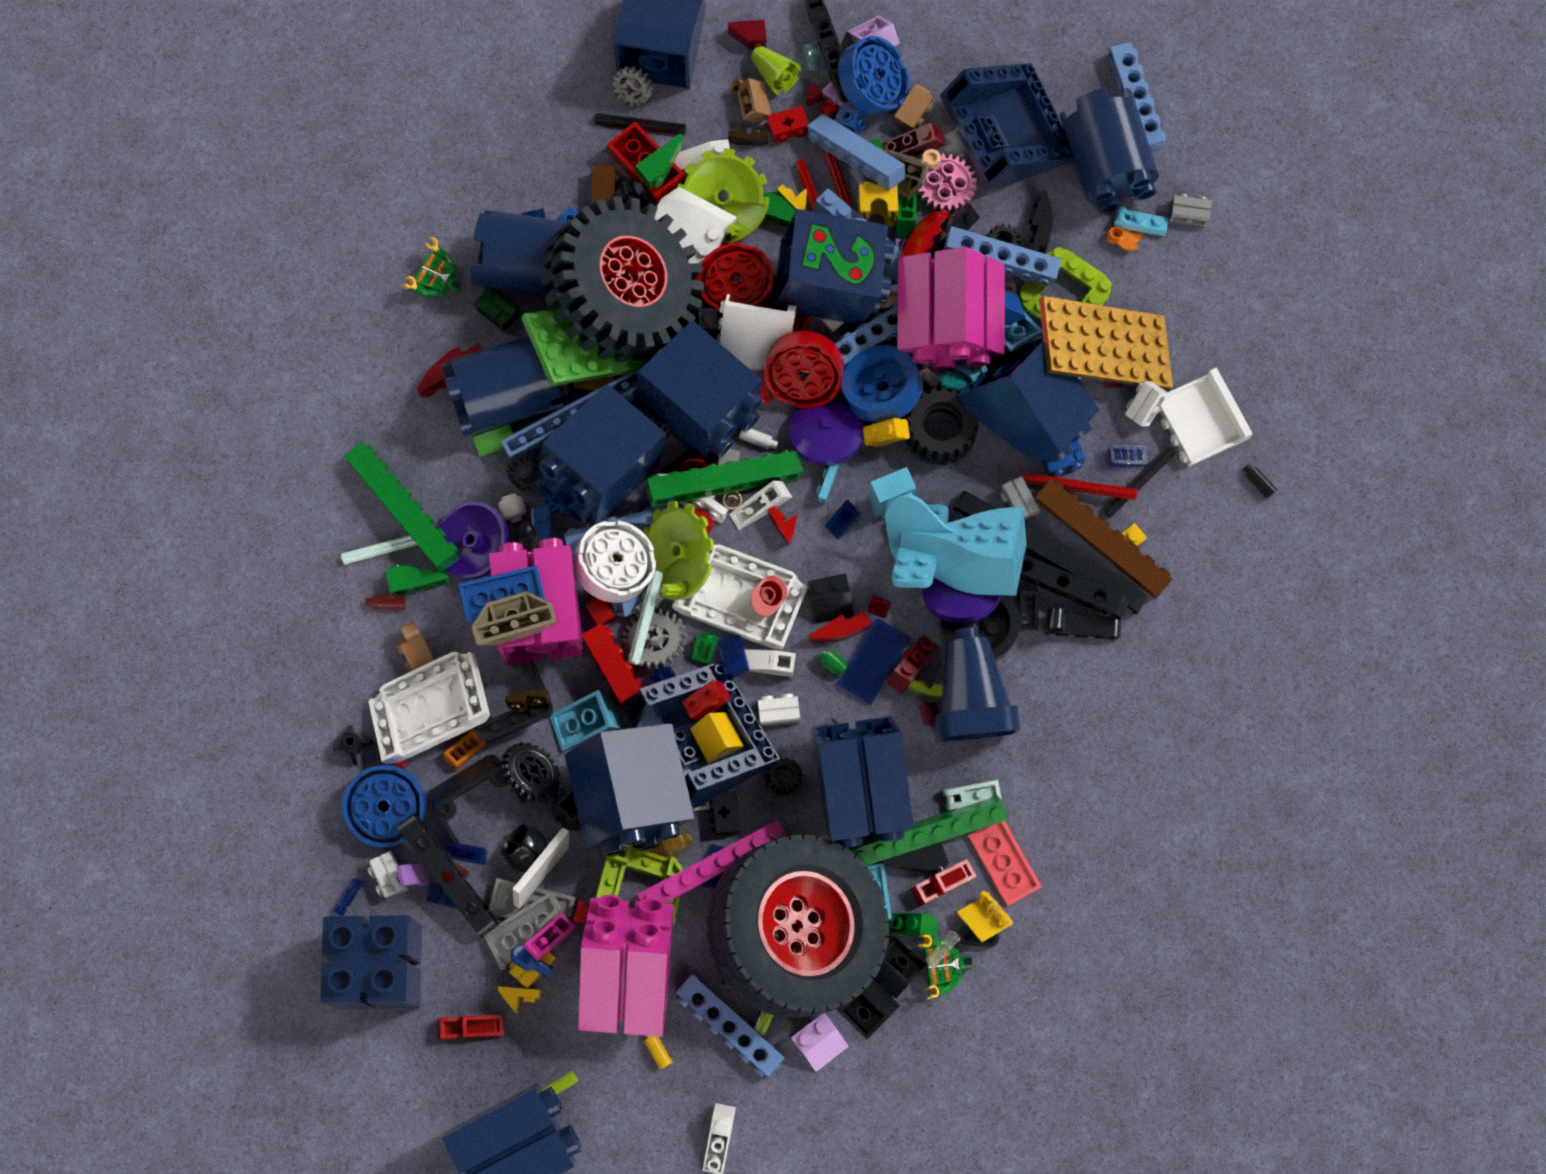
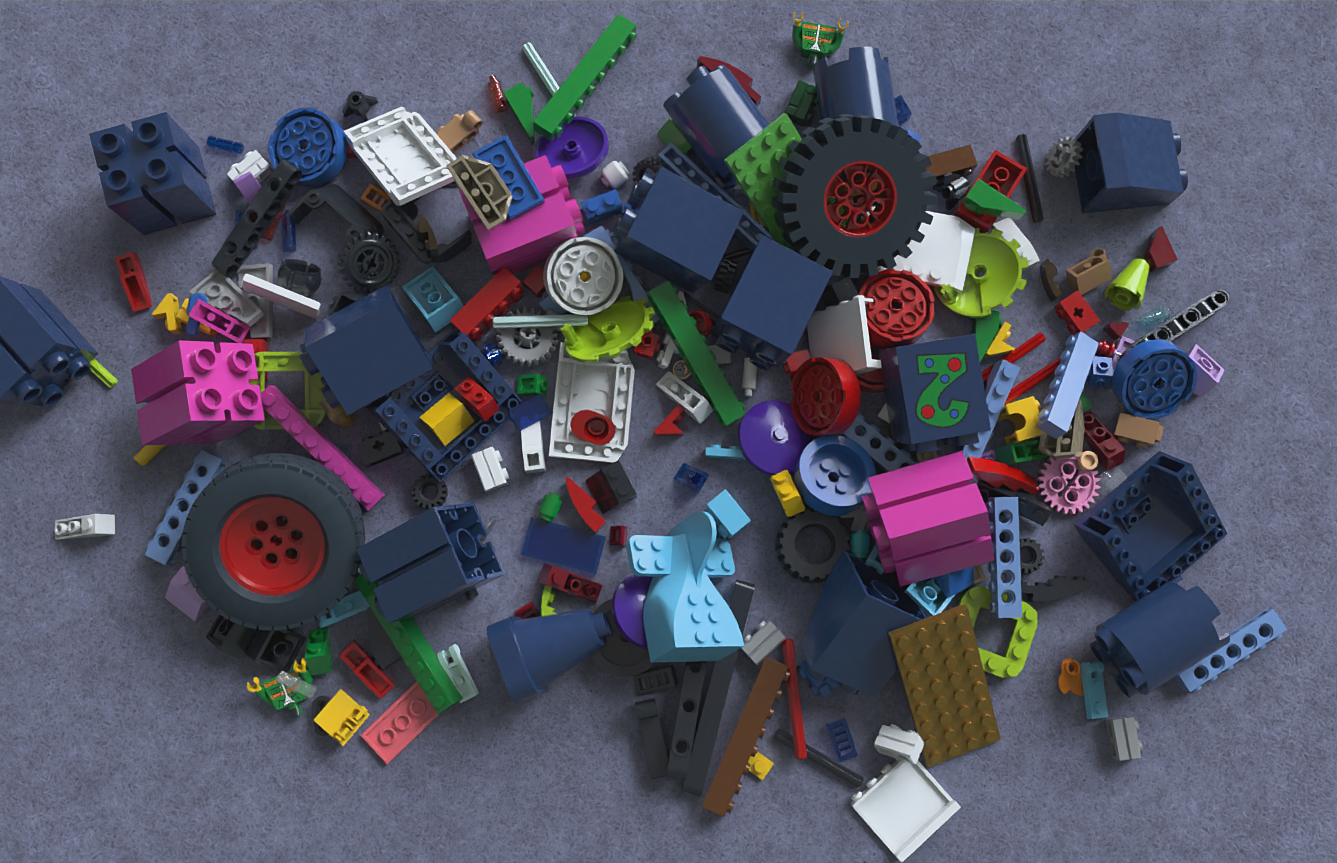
camera: 75 degrees right, 5 degrees up
(526, 536) = (584, 193): clear smoke dish -> none

